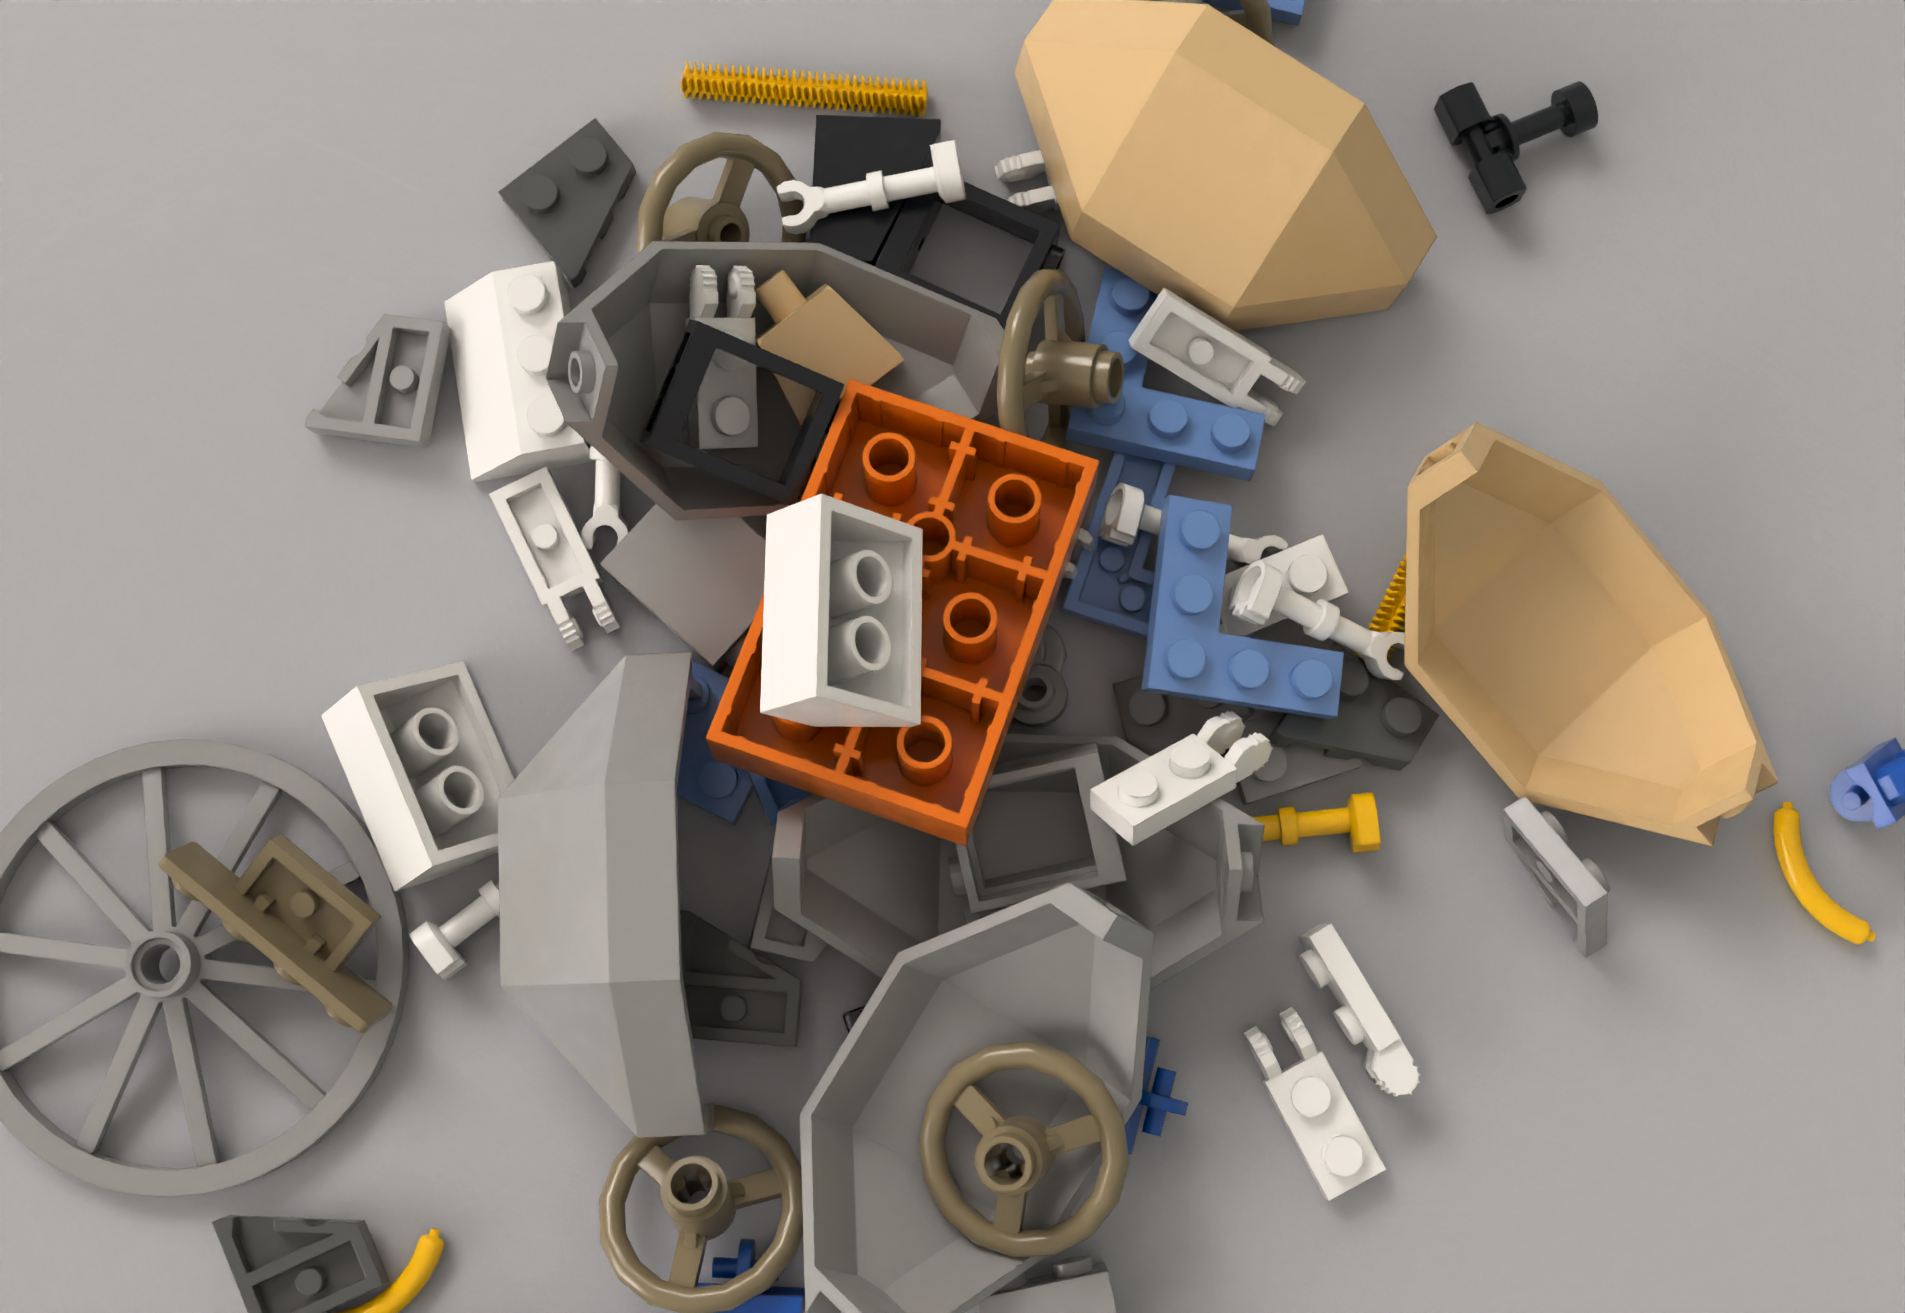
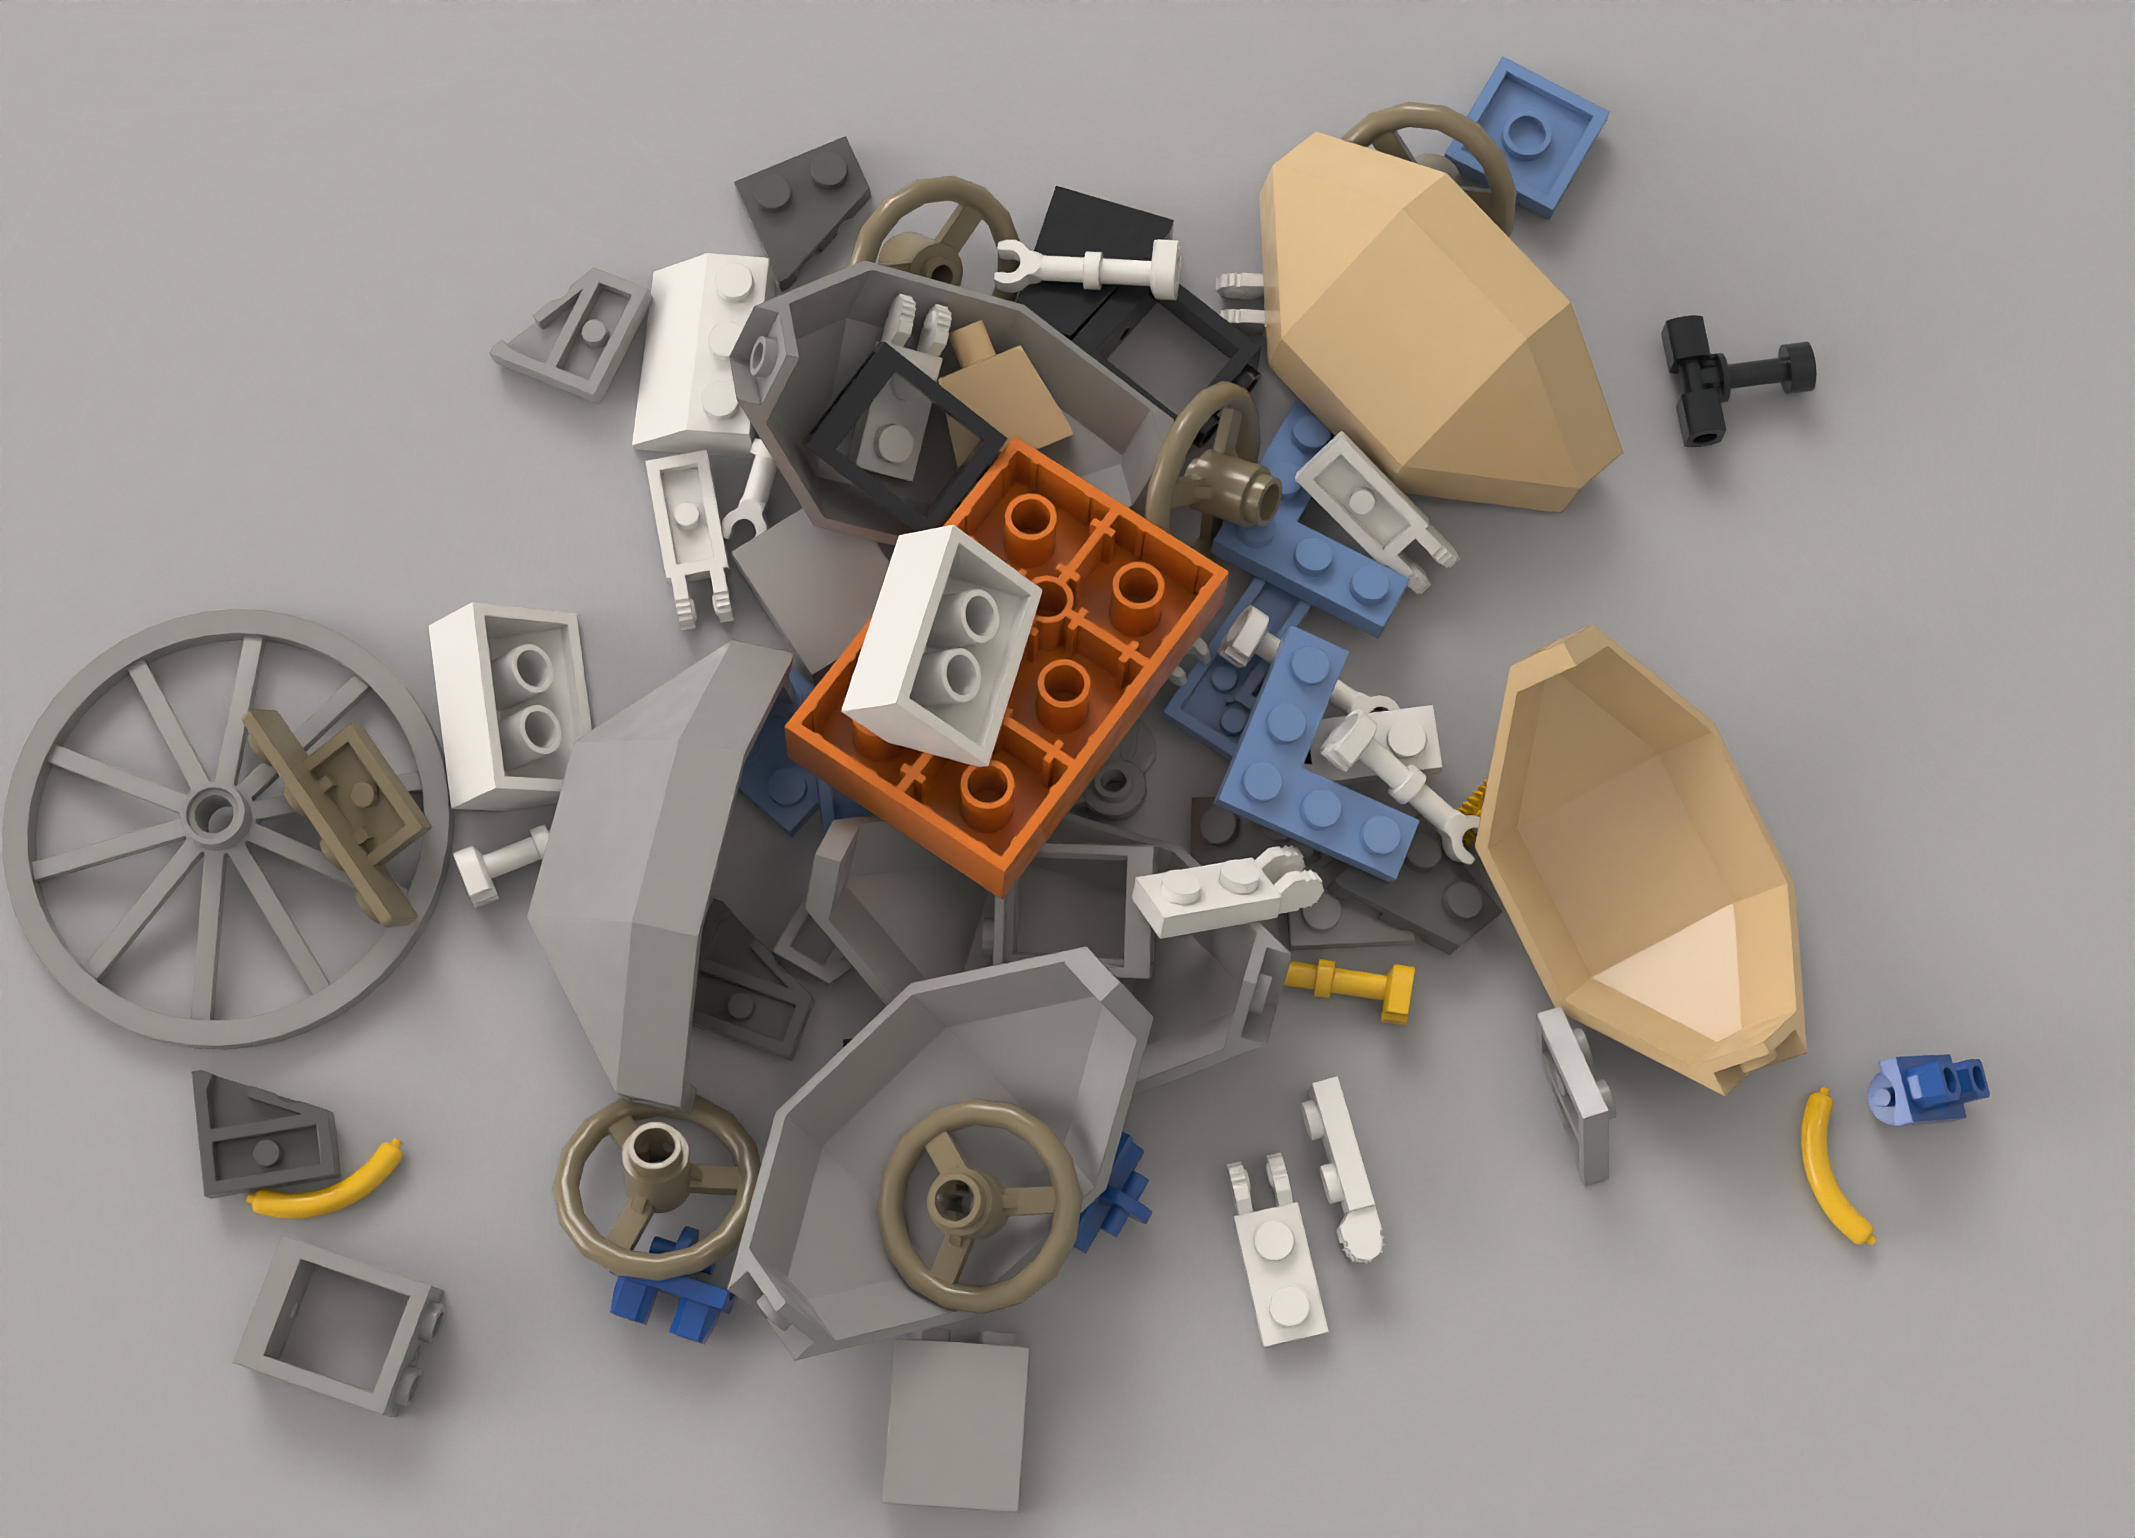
camera: 15 degrees right, 5 degrees down
(804, 90) = (1053, 160): yellow axle -> none

